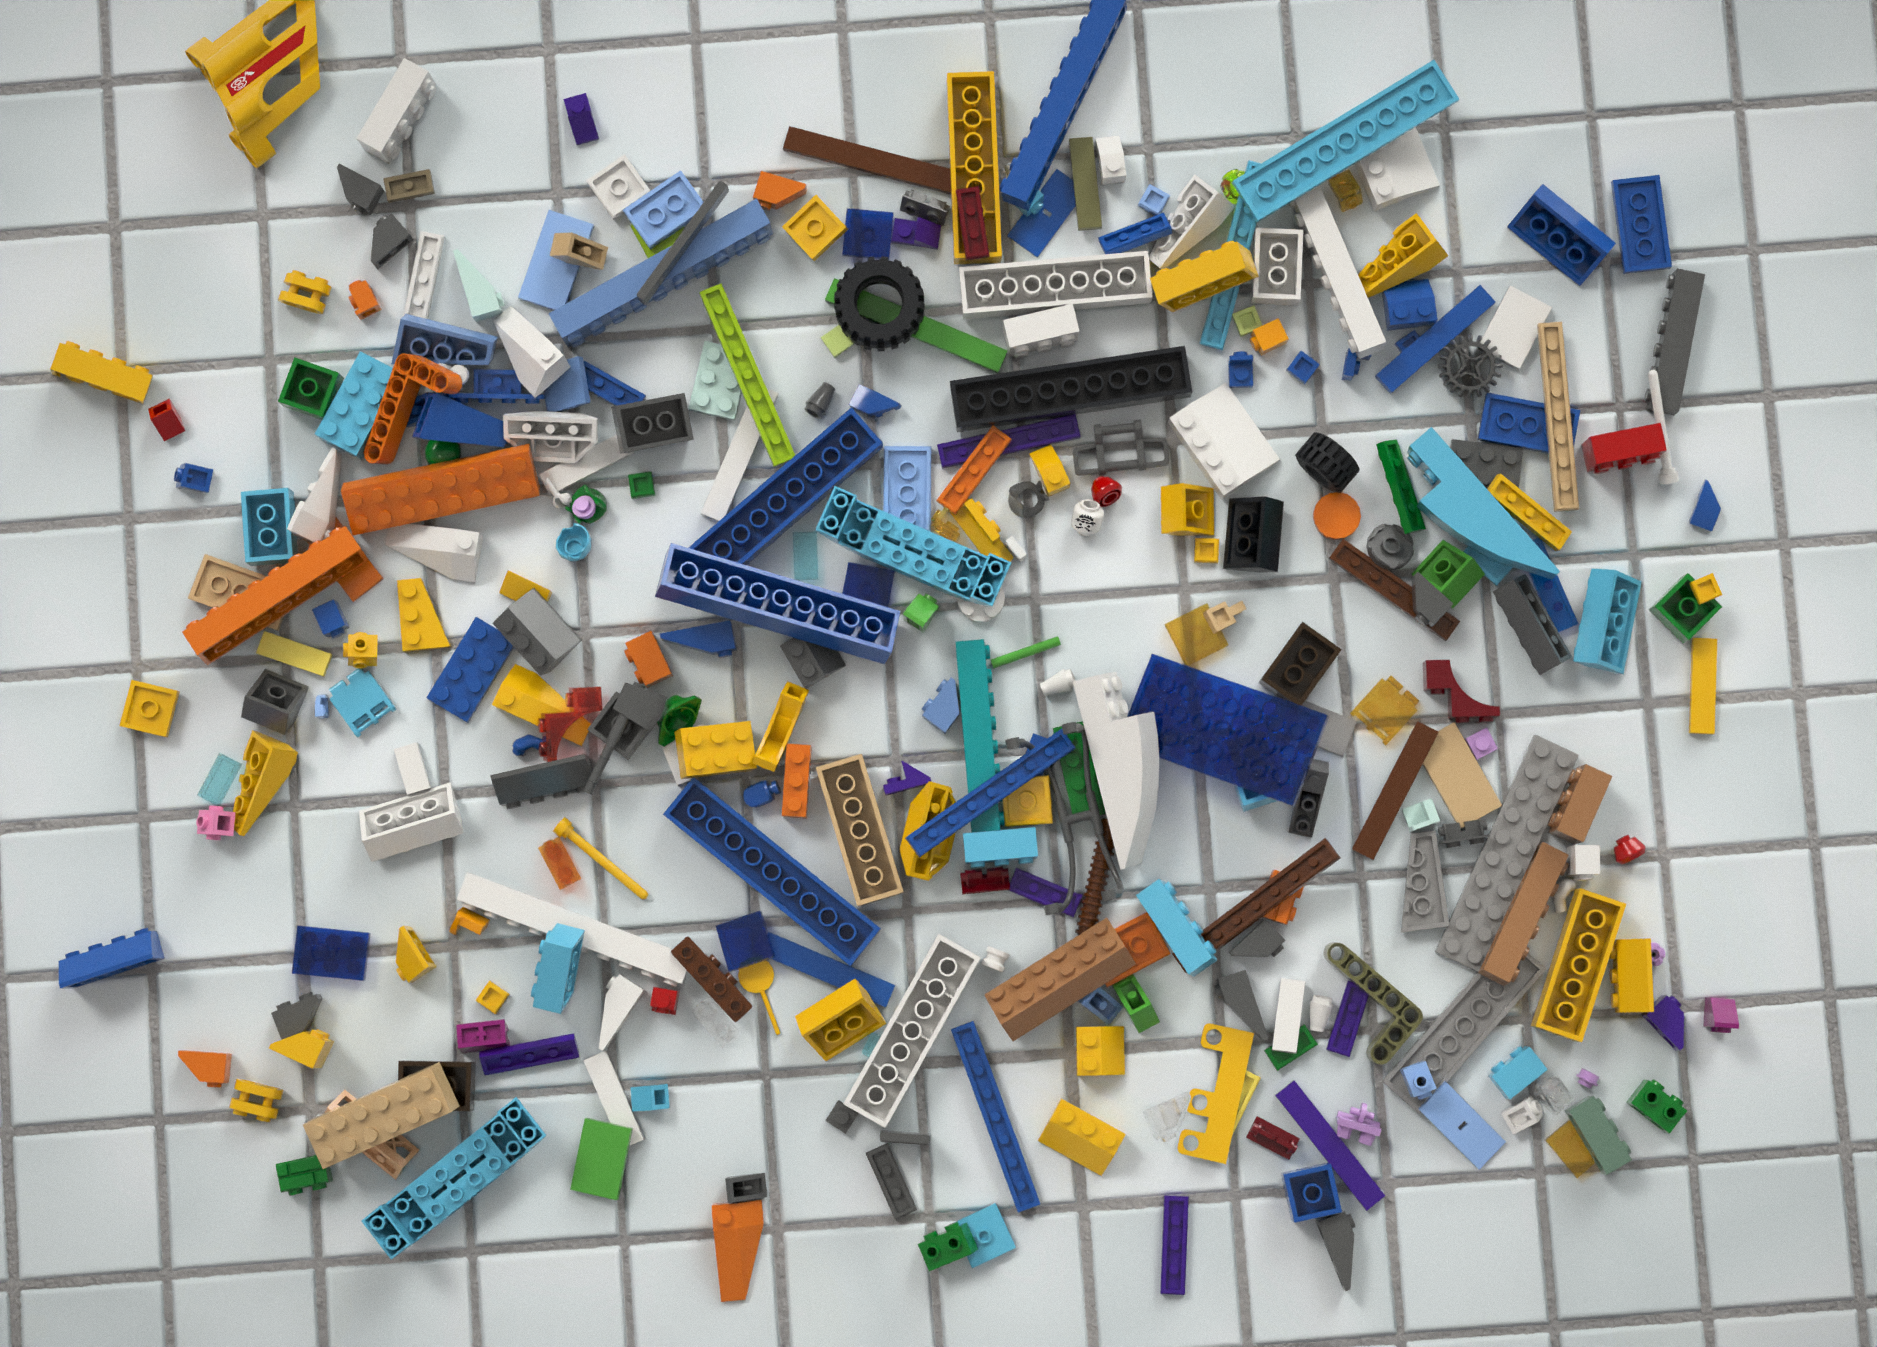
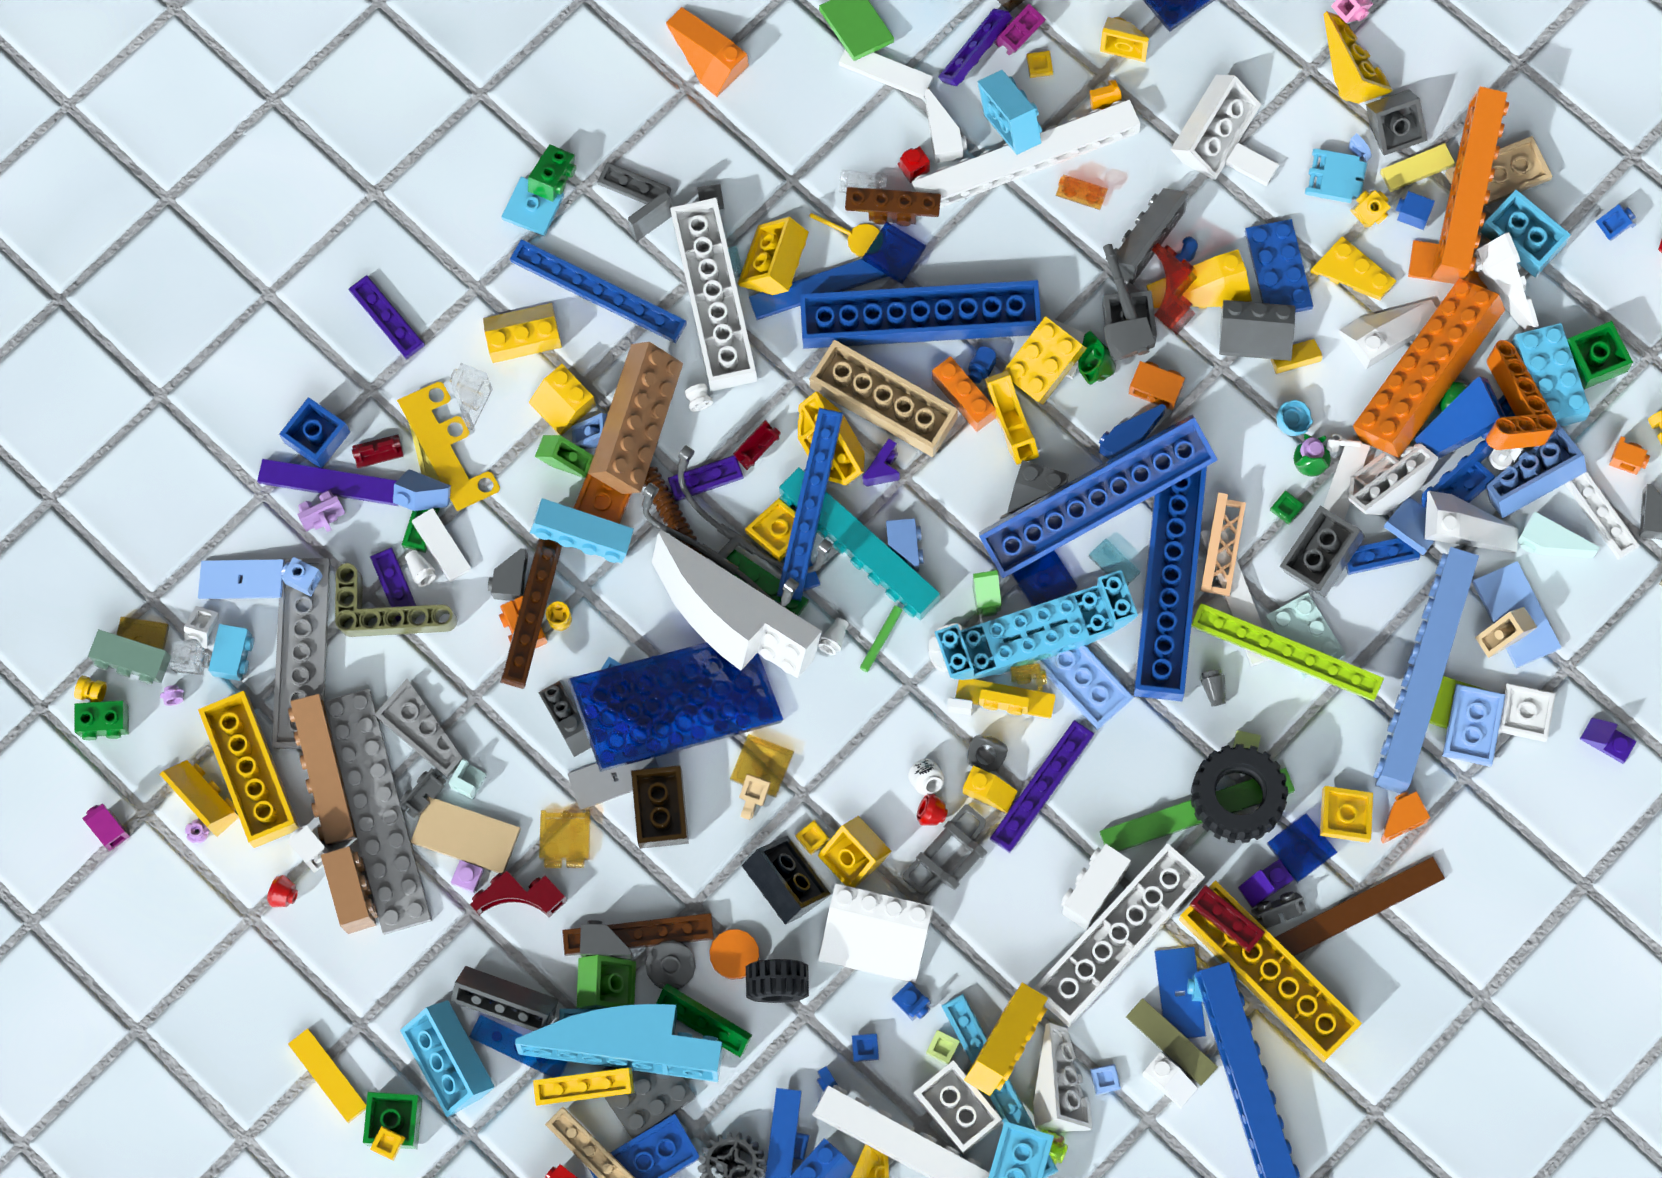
camera: 140 degrees right, 10 degrees down
(149, 708) = (1480, 41): yellow plate -> none
(219, 779) = (1381, 39): clear light blue tile -> none
(566, 830) = (1099, 217): yellow piece -> none
(650, 1097) = (861, 92): medium azure brick -> none
(682, 242) = (1431, 695): dark grey tile -> none
(723, 499) = (1215, 538): none -> light nougat fence
(746, 1187) = (736, 90): dark grey slope -> none
(872, 402) = (1174, 720): blue slope -> none
(974, 470) = (1047, 737): orange tile -> none
(1000, 847) = (766, 473): medium azure brick -> none
(1070, 389) = (1030, 864): black brick -> none
(1135, 235) = (1093, 1034): blue tile -> none
(1239, 997) = (489, 525): dark grey slope -> none
(1248, 880) = (555, 612): none -> yellow wheel
(1268, 337) = (913, 1046): light orange brick -> none
(1270, 1070) = (420, 492): none -> medium blue slope
(1339, 1242) = (264, 418): dark grey slope -> none
(1395, 790) = (503, 780): reddish brown tile -> none
(1564, 889) = (307, 814): white arm -> none
(1647, 1137) = (90, 690): none -> yellow wheel
(1668, 1020) = (146, 789): dark purple slope -> none

